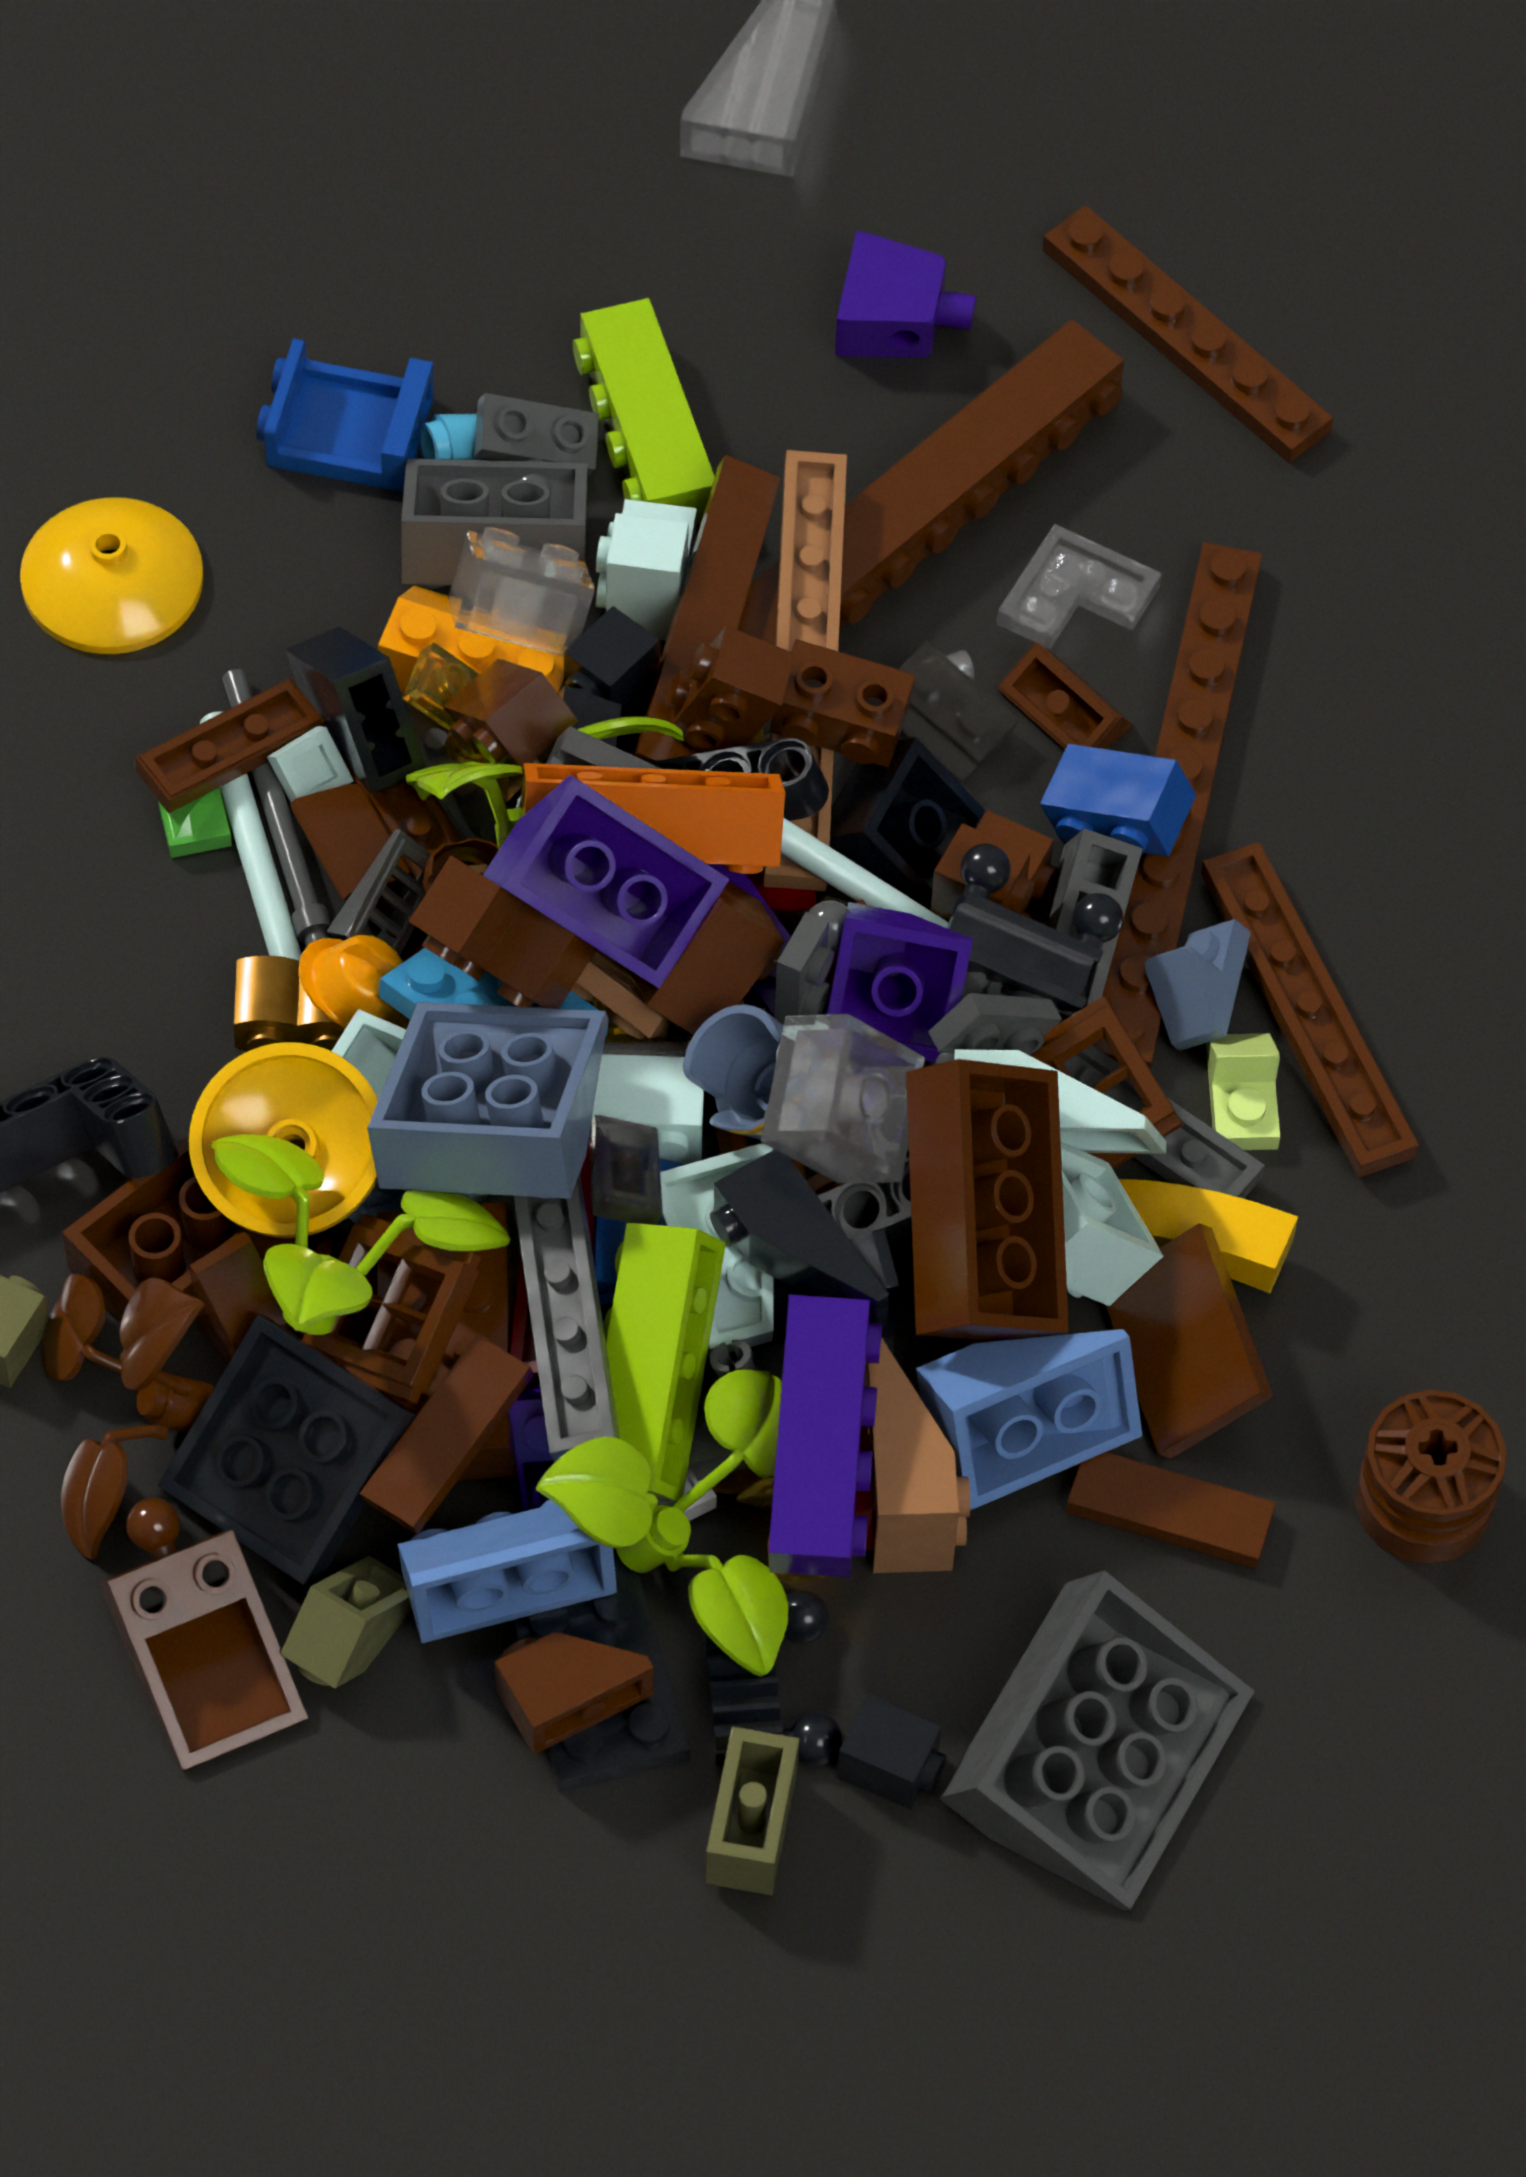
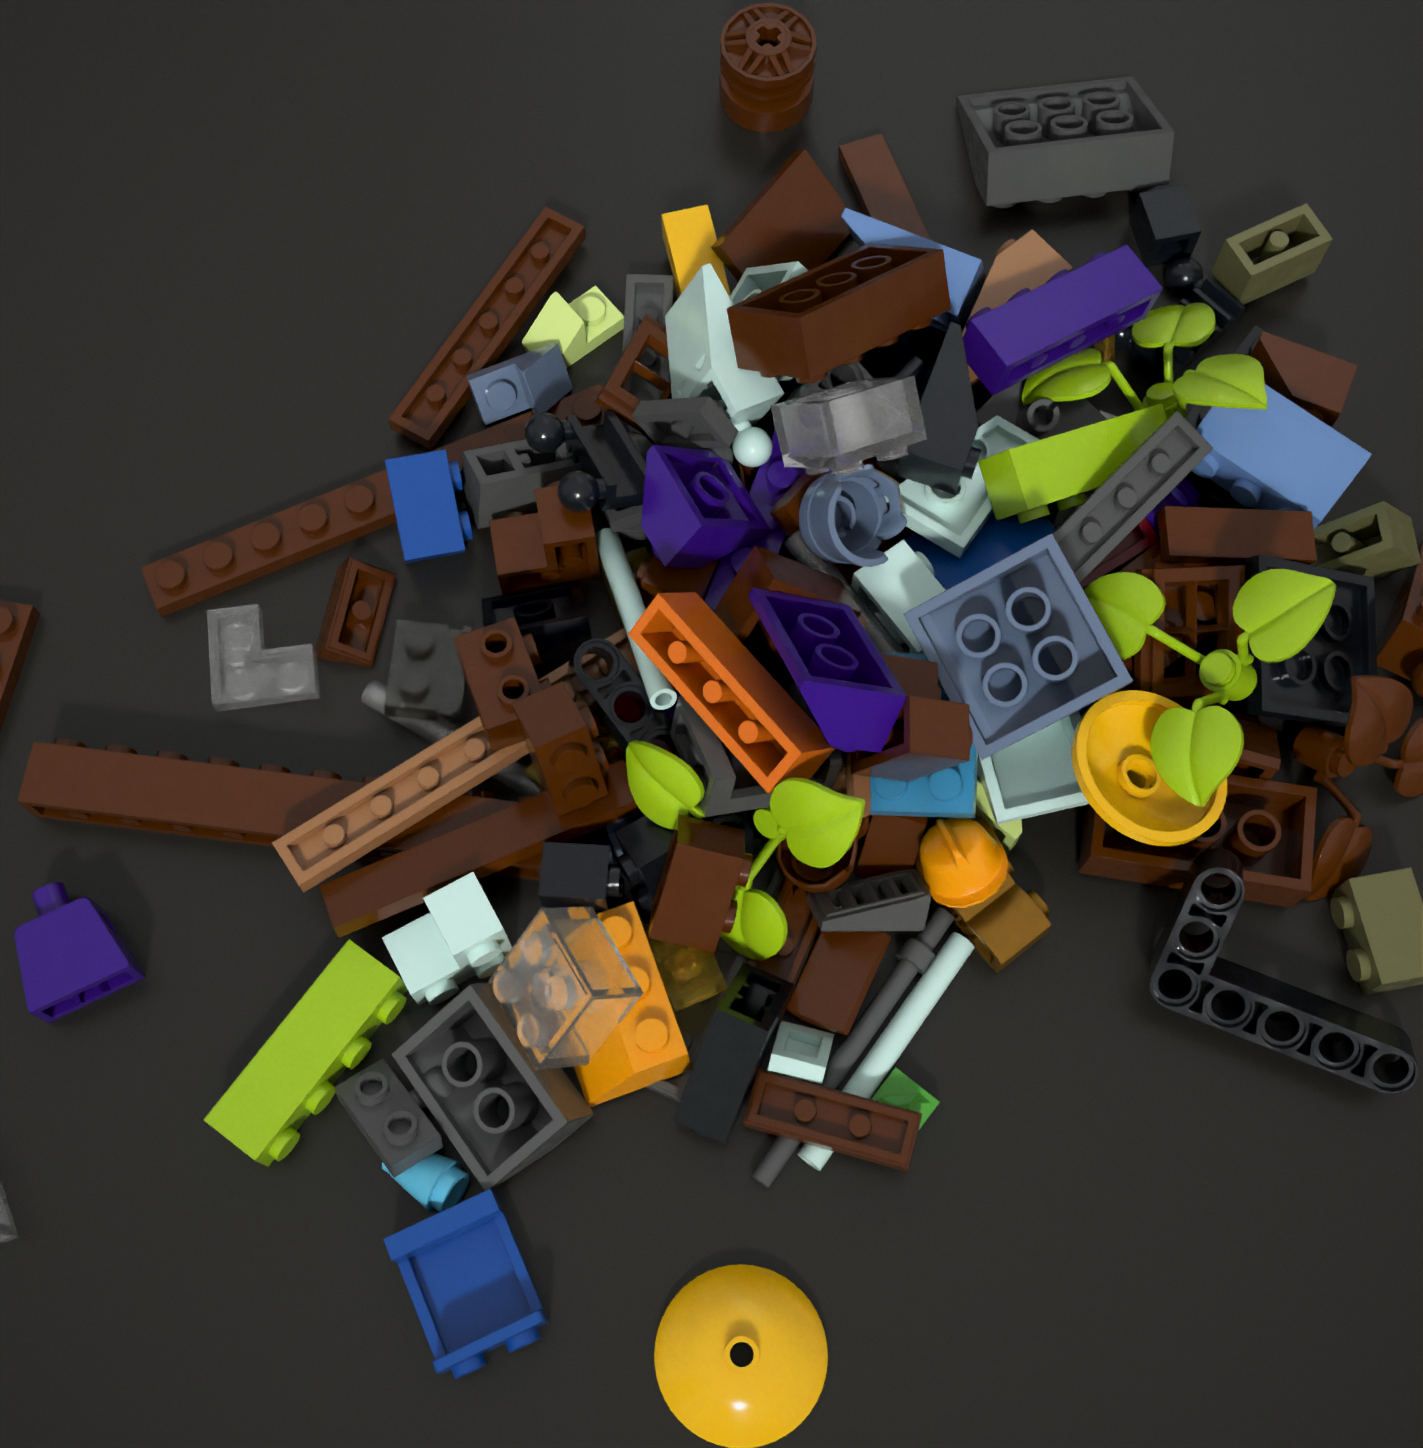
camera: 125 degrees left, 10 degrees up
(625, 1171) = (991, 537): clear smoke plate -> none
(807, 960) = (744, 529): dark grey plate -> none

